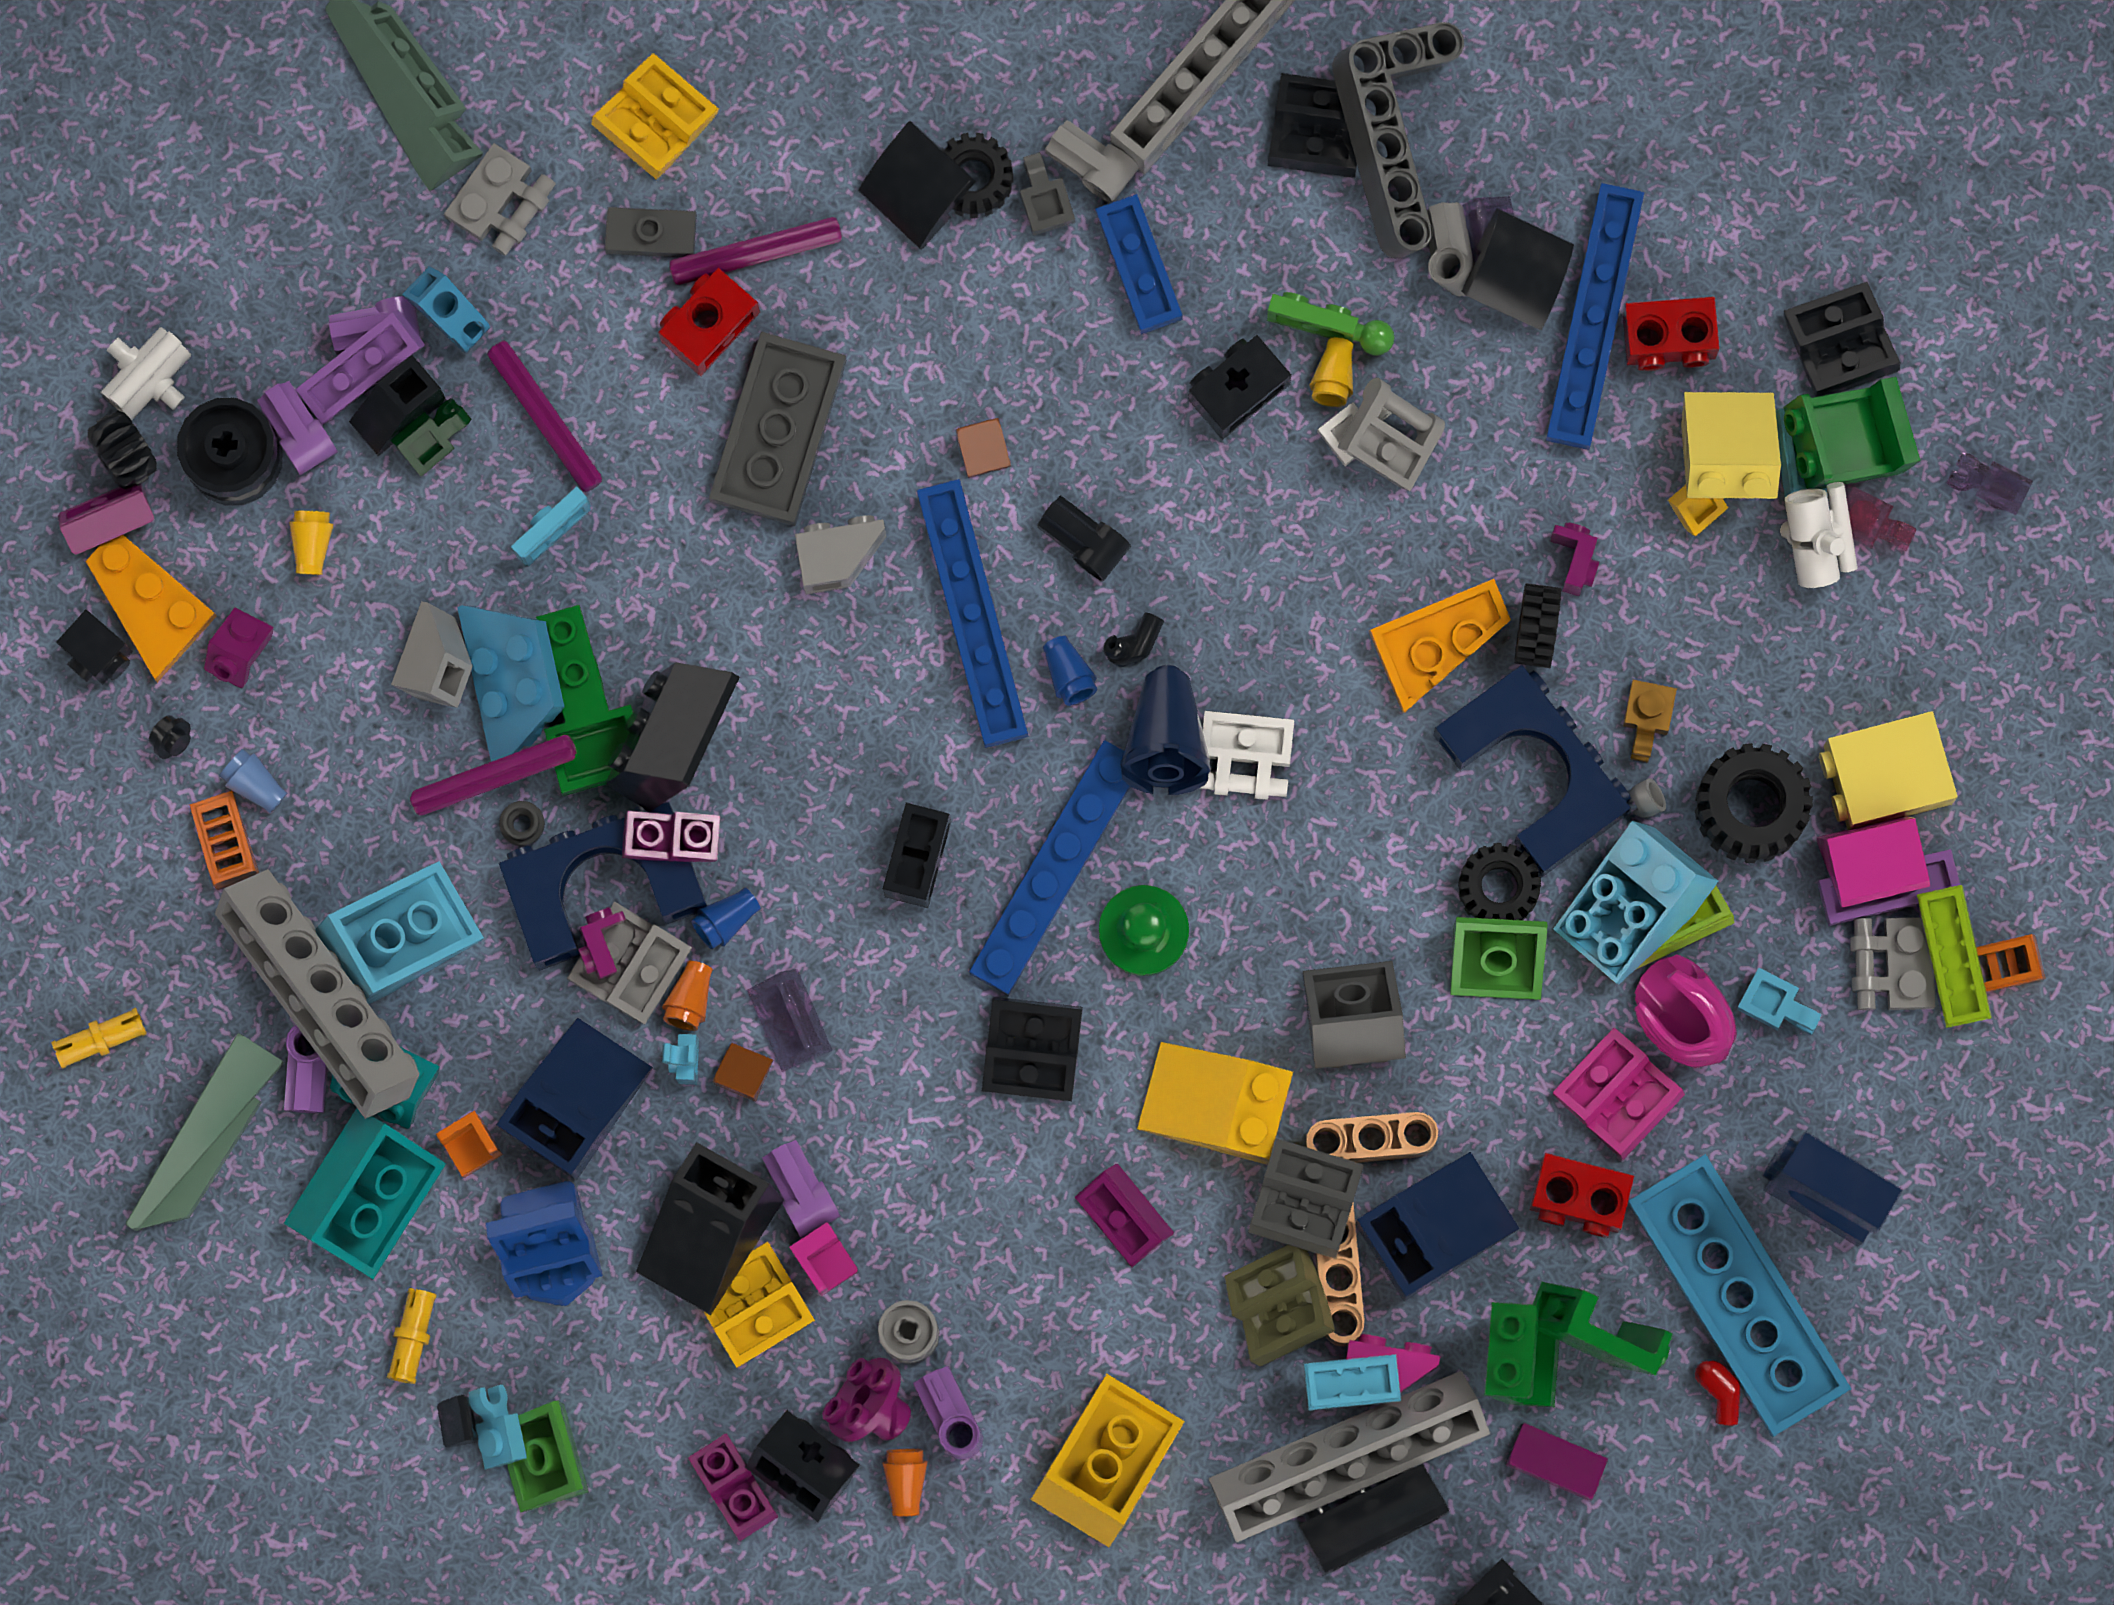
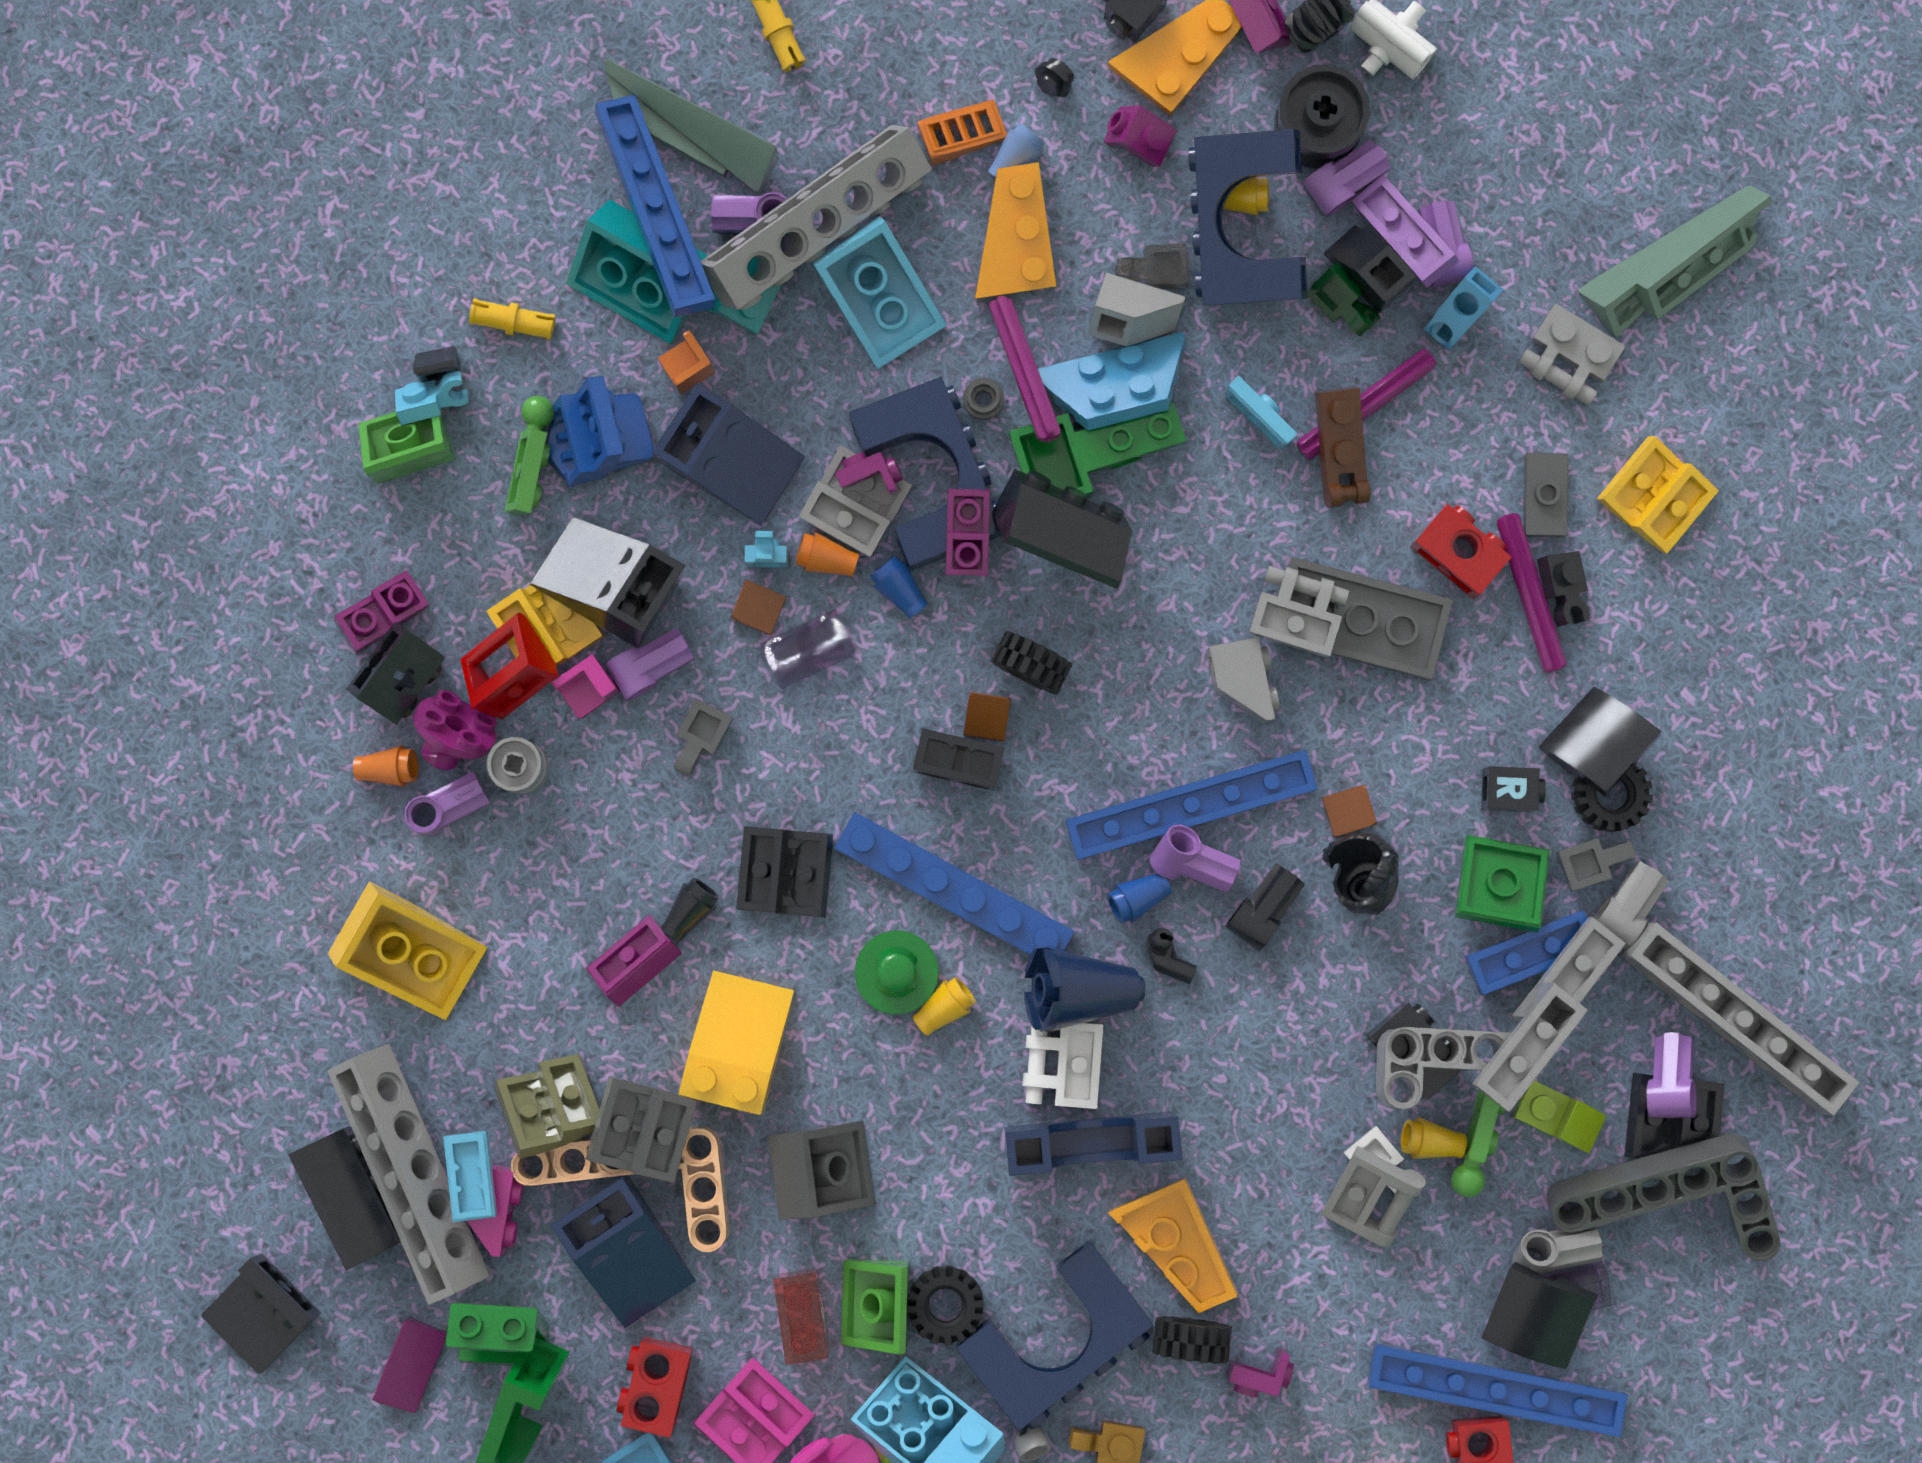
camera: 85 degrees right, 5 degrees up
(297, 1166) = (655, 206): none -> blue plate
(344, 780) = (1017, 235): none -> light orange wing
(384, 628) = (1161, 266): none -> clear smoke plate
(398, 556) = (1220, 167): none -> dark blue arch
(569, 1318) = (530, 456): none -> bright green plate
(591, 441) = (1341, 446): none -> reddish brown plate
(743, 215) = (1564, 580): none -> black plate
(781, 495) = (1295, 623): none -> light grey plate
(814, 775) = (1031, 662): none -> black tyre
(816, 1330) = (518, 679): none -> red tile
(870, 827) = (987, 716): none -> dark orange slope
(877, 1133) = (702, 730): none -> dark grey plate
(965, 278) = (1512, 789): none -> black brick
(1025, 619) = (1183, 853): none -> medium lavender piece
(1049, 432) = (1365, 872): none -> black hair
(1065, 291) = (1502, 883): none -> green plate
(1069, 1150) = (690, 908): none -> black cone
(1182, 879) = (946, 1005): none -> yellow cone
(1203, 244) = (1548, 1014): none -> light grey bracket
(1246, 335) = (1422, 1055): none -> light grey beam
(1284, 124) = (1672, 1087): none -> medium lavender piece
(1311, 242) = (1560, 1116): none -> lime slope
(1327, 720) = (1062, 1143): none -> dark blue arch
(1508, 1036) = (801, 1316): none -> clear red brick

